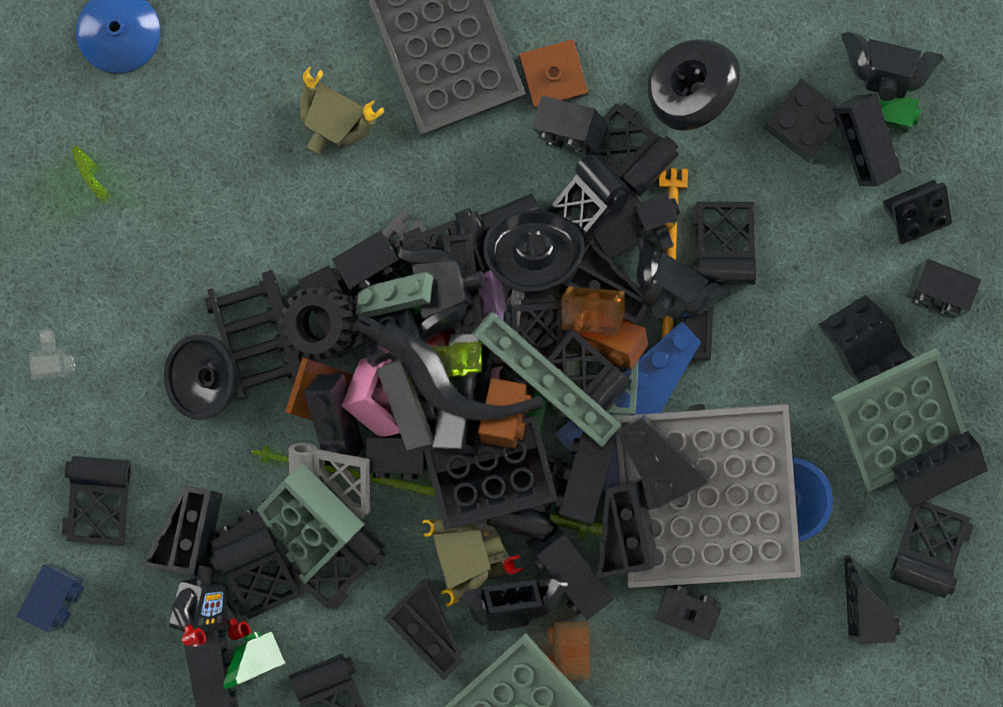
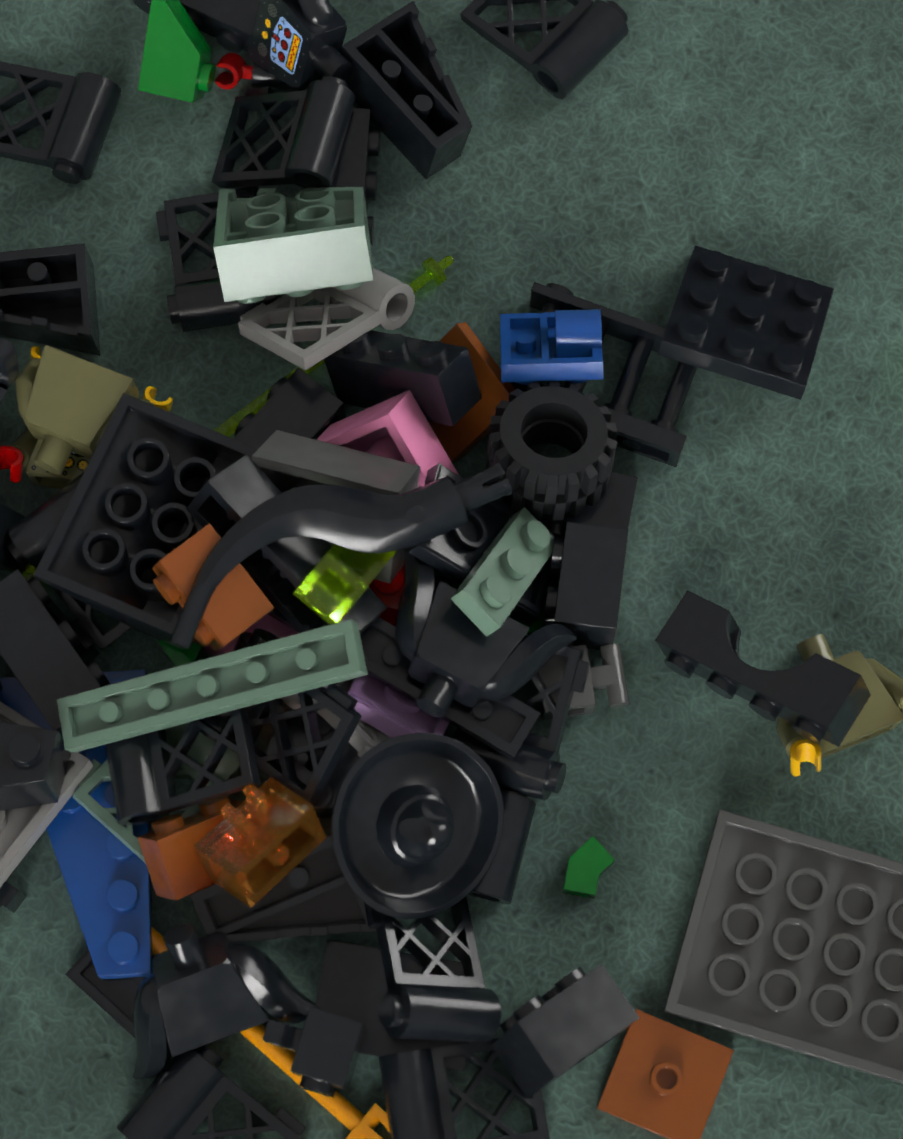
camera: 130 degrees right, 10 degrees down
(50, 362) = (779, 88): clear brick -> none
(183, 287) = (746, 322): none -> black plate
(189, 380) = (604, 255): black dish -> none
(268, 362) = (551, 346): none -> blue plate
(343, 124) = (814, 696): none -> black arch
(490, 173) = (585, 868): none -> green piece

